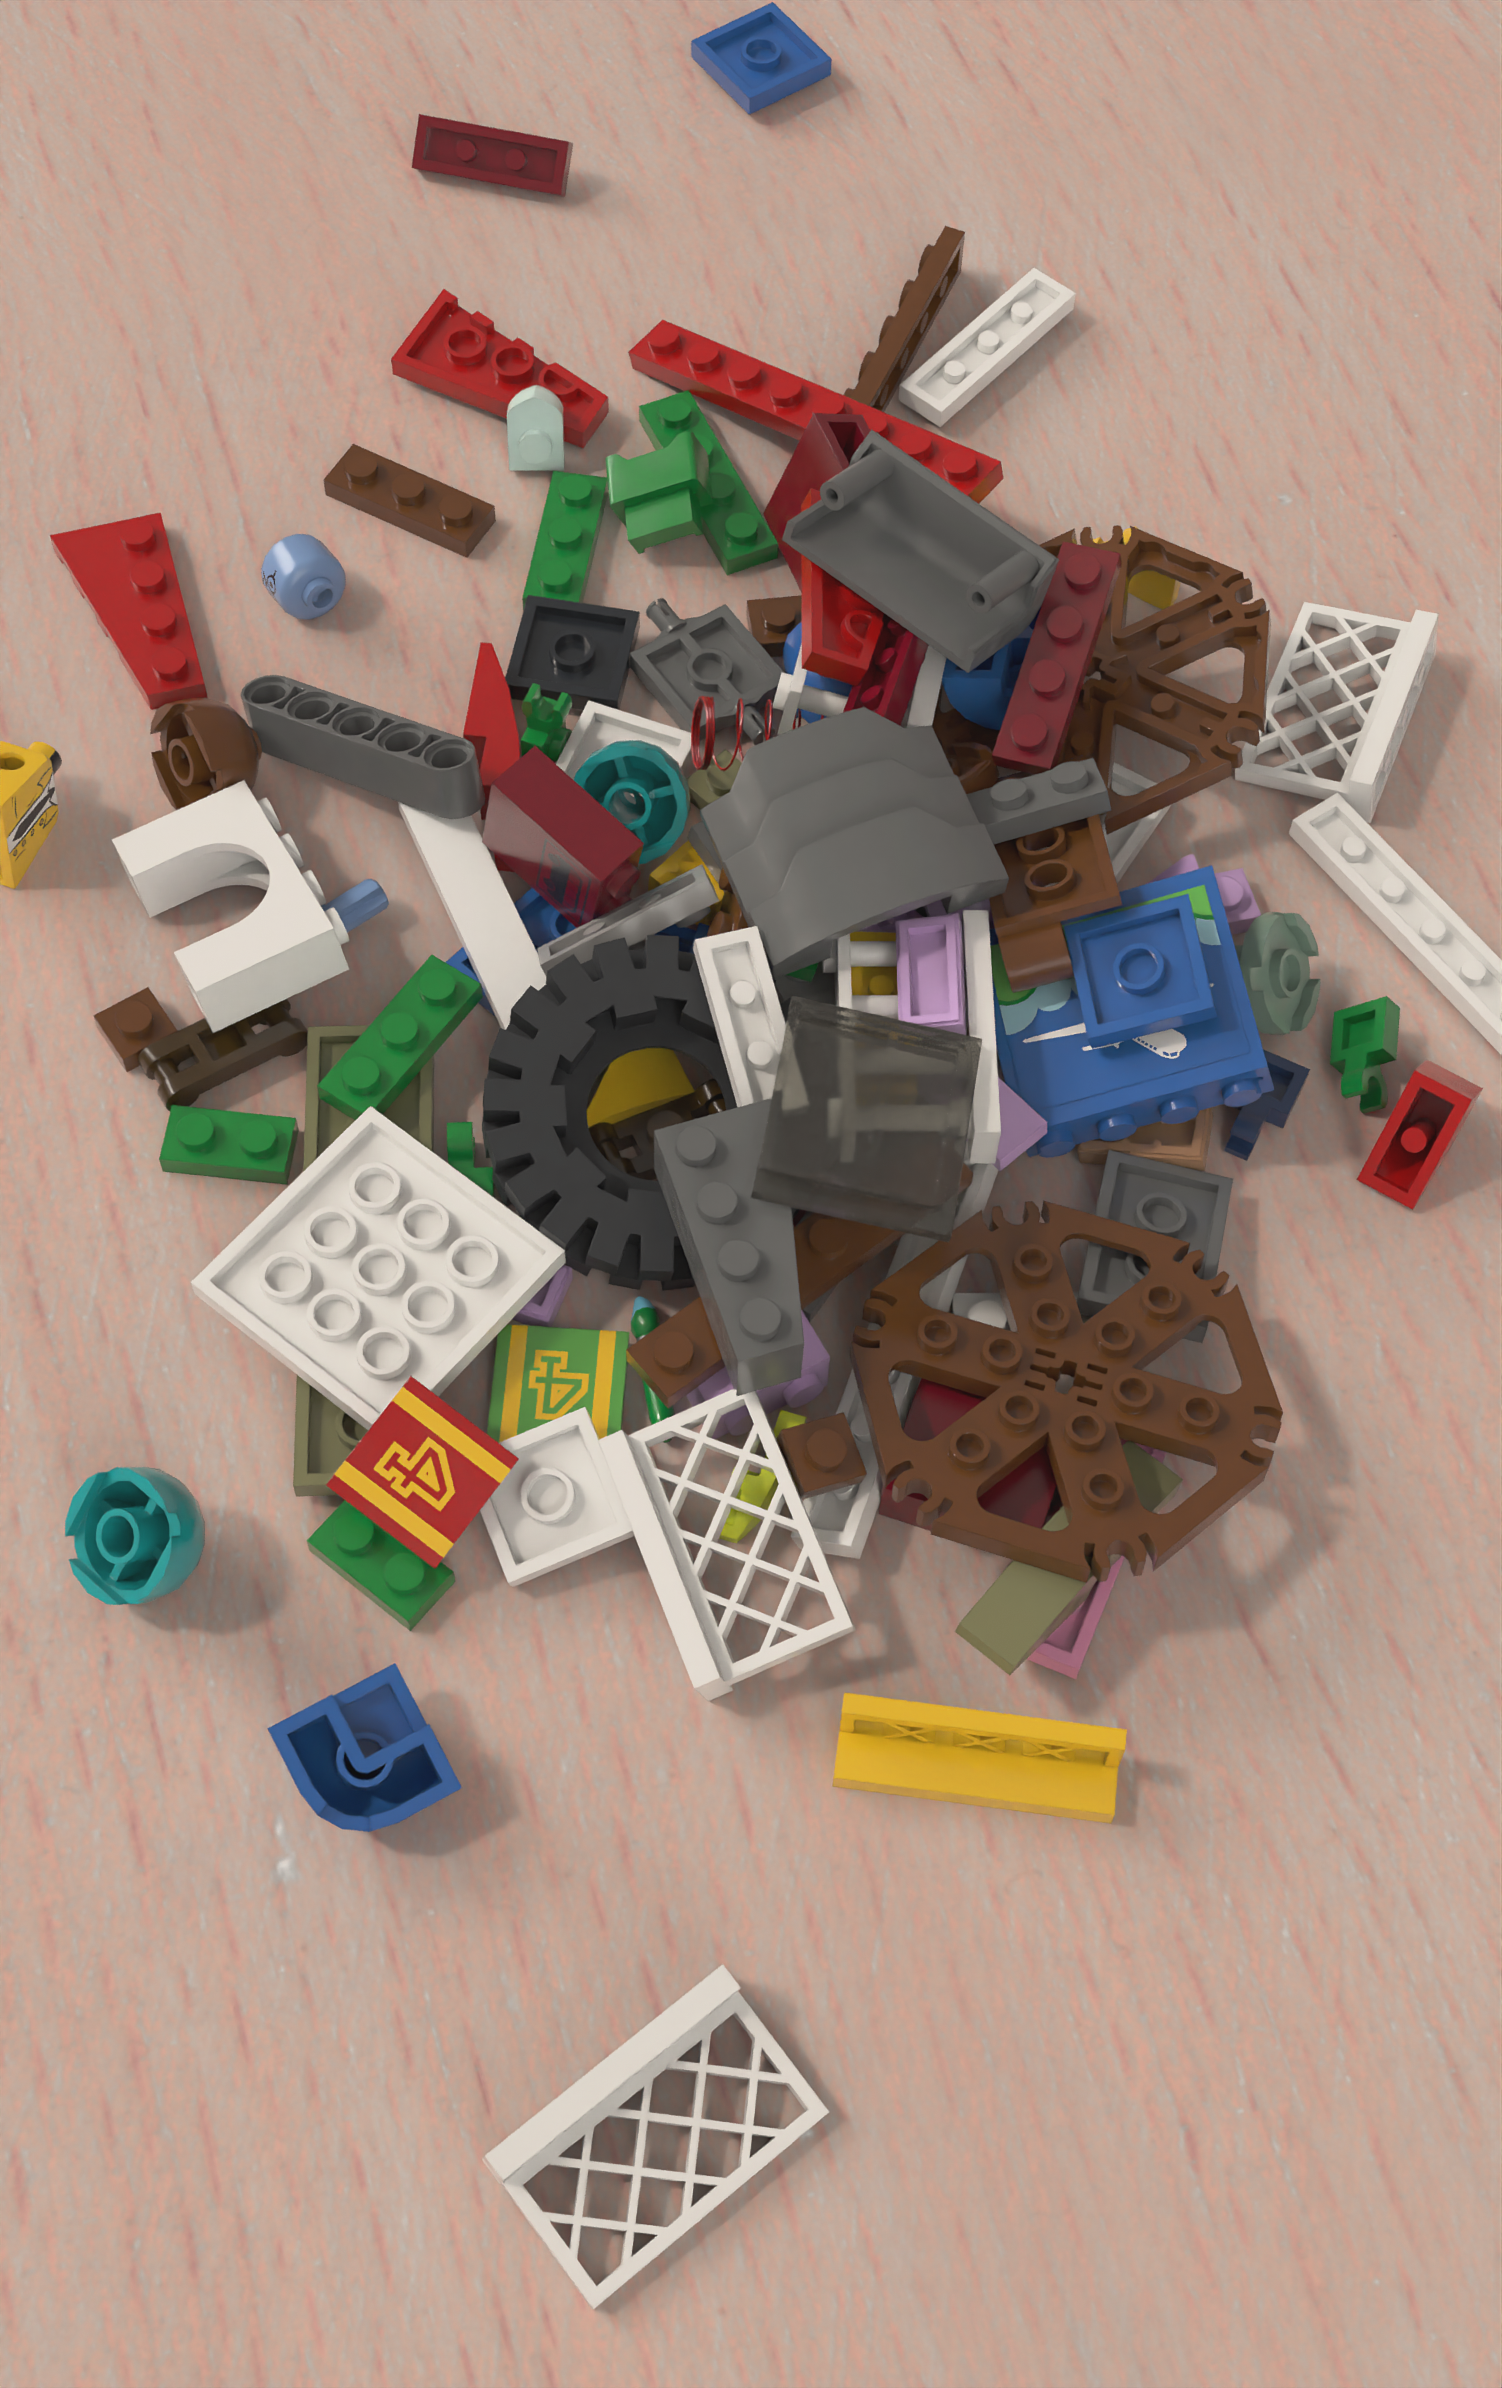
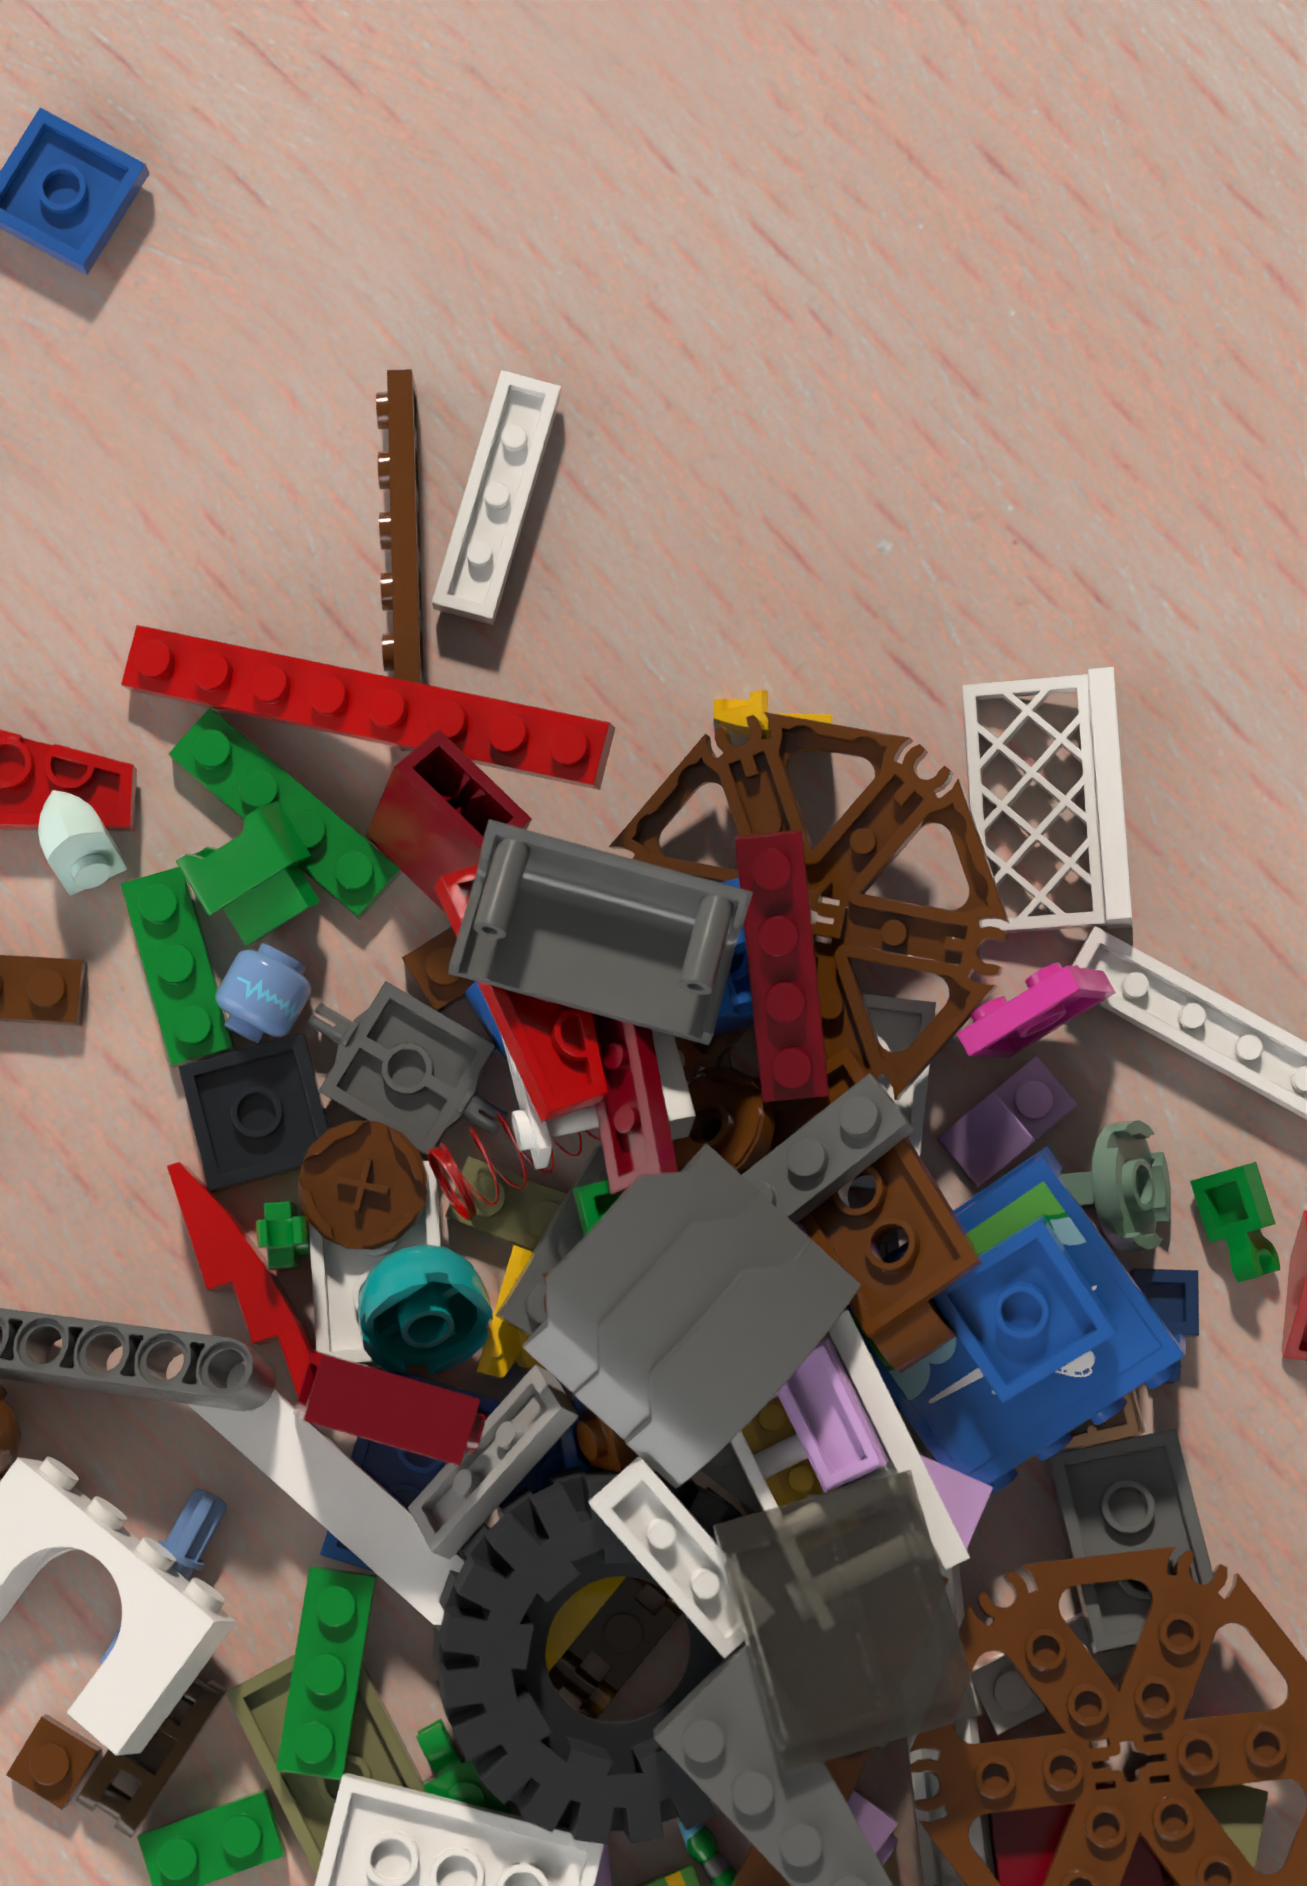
camera: 25 degrees left, 20 degrees up
(624, 572) = (263, 993): none -> medium blue head
(629, 707) = (363, 1185): none -> reddish brown tile
(1257, 807) = (1052, 1000): none -> dark pink plate

